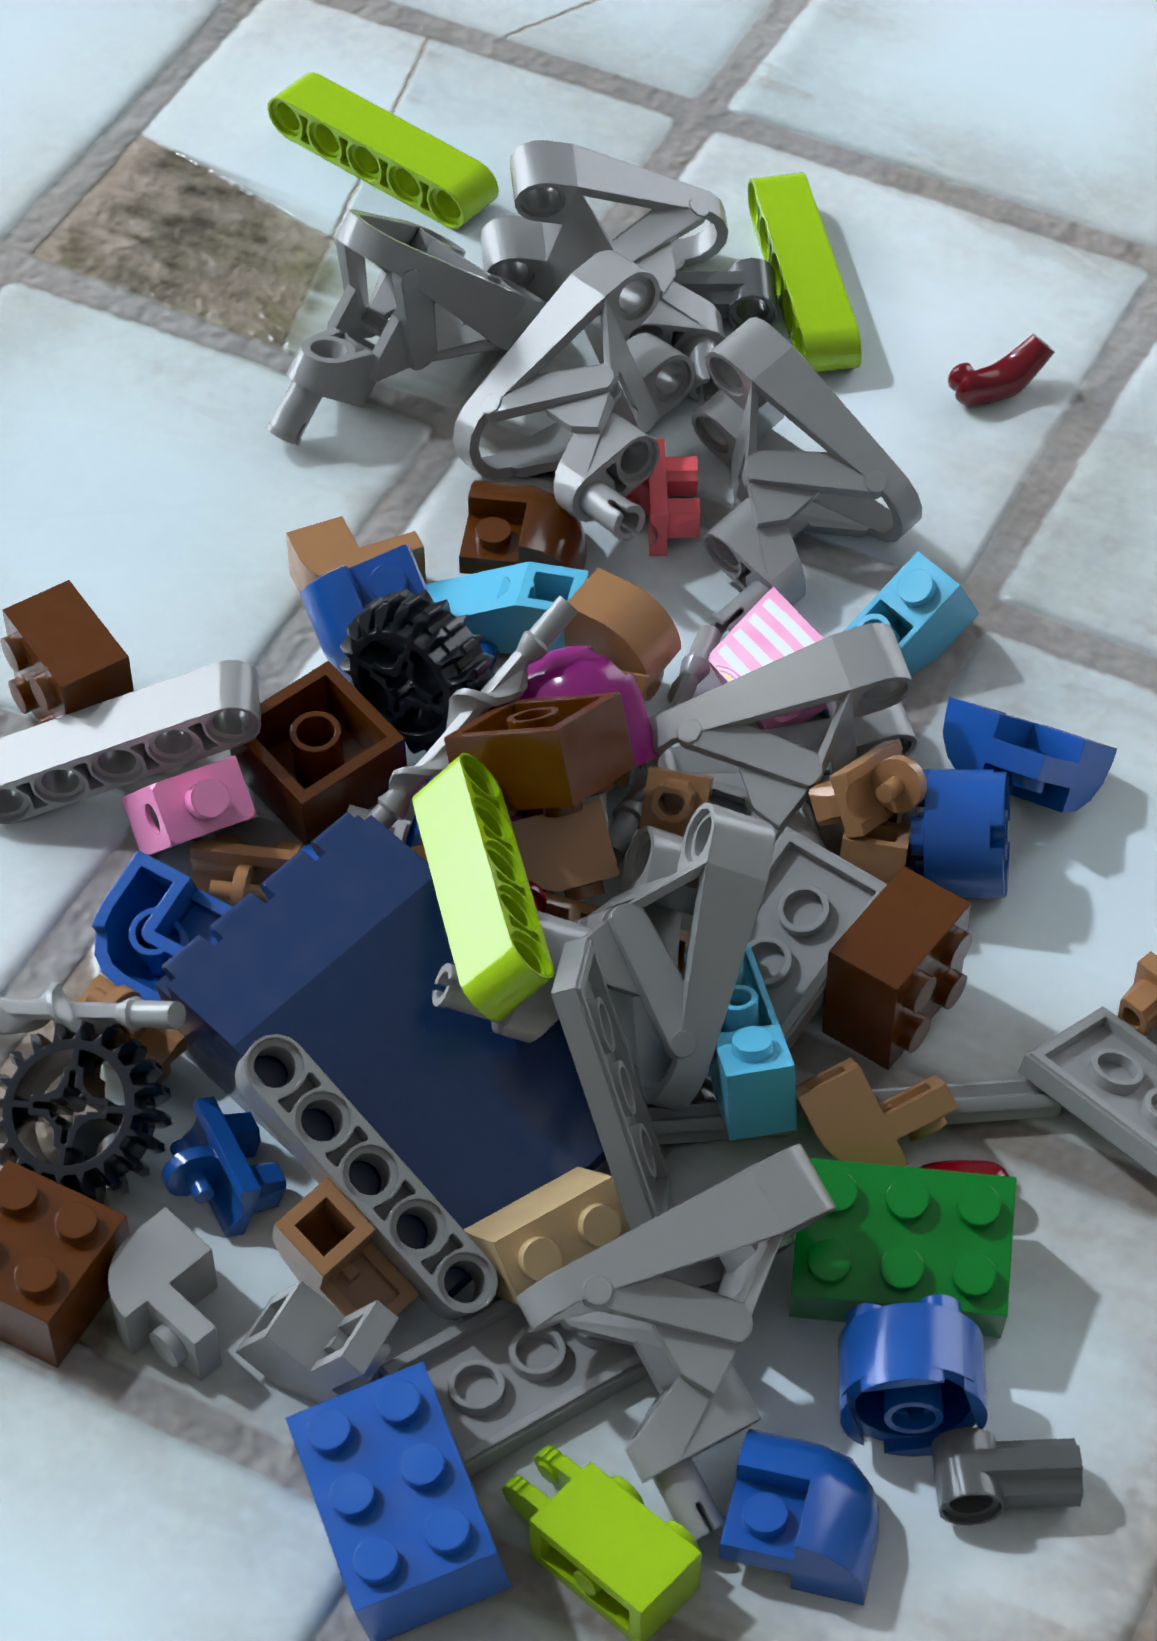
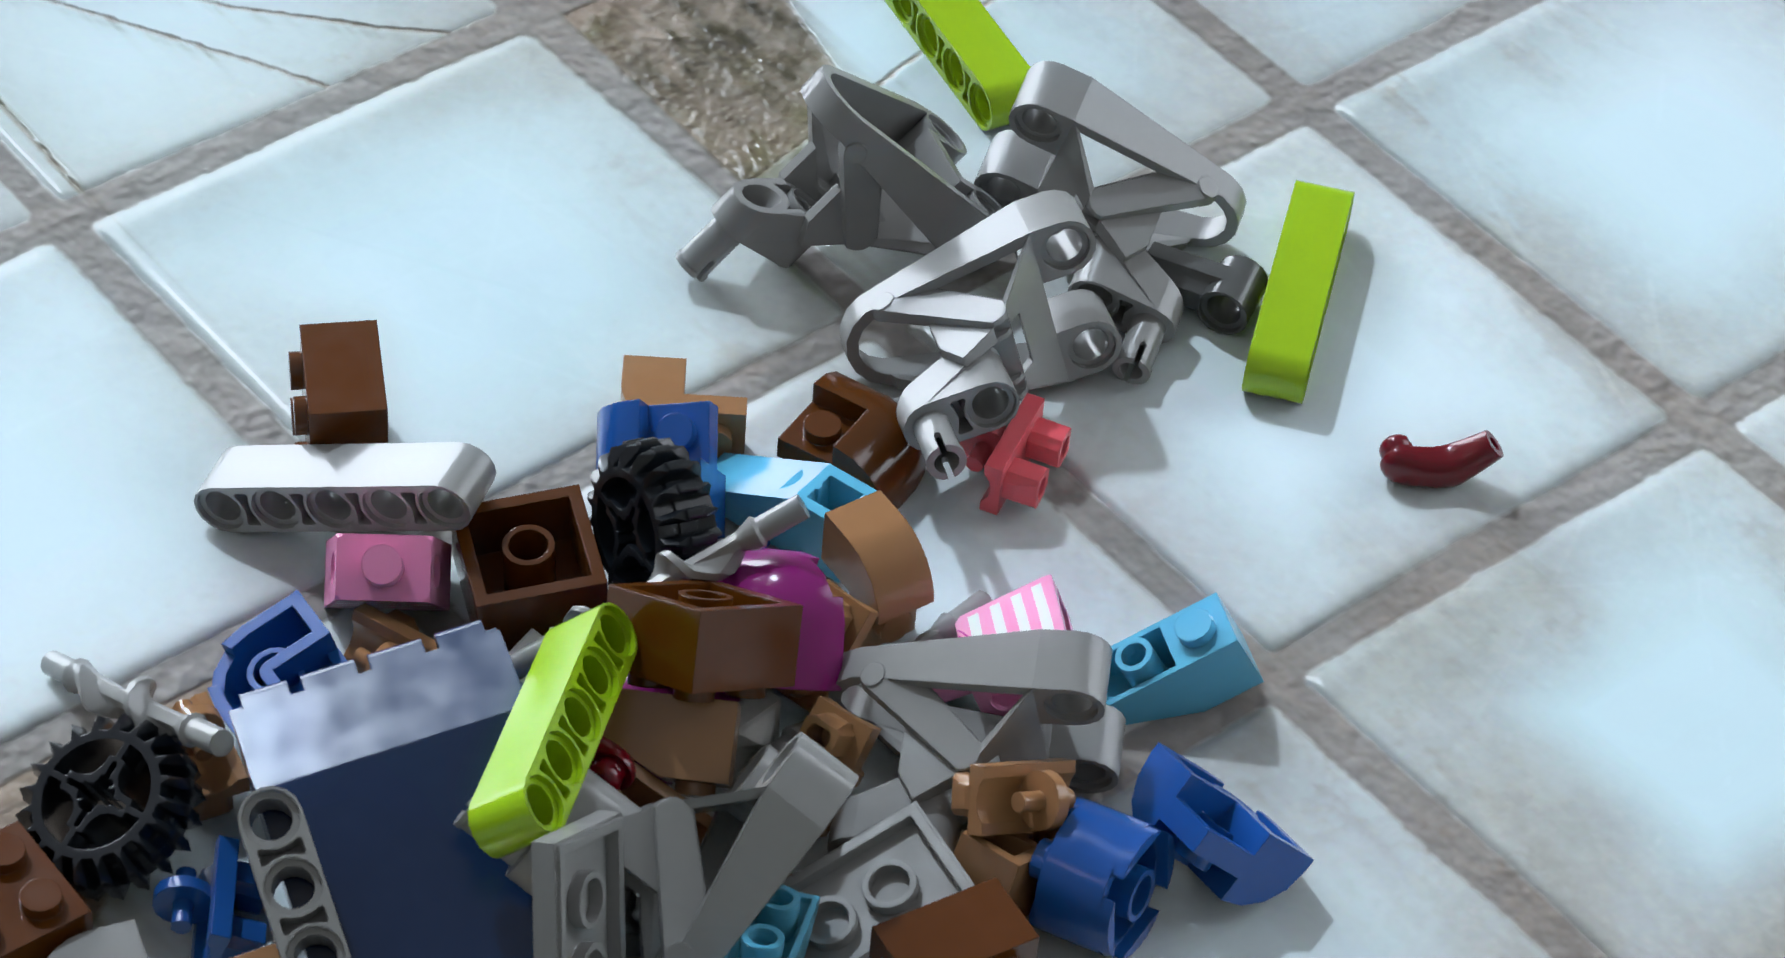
camera: 20 degrees right, 5 degrees down
(777, 483) = (1150, 450): light grey connector -> none

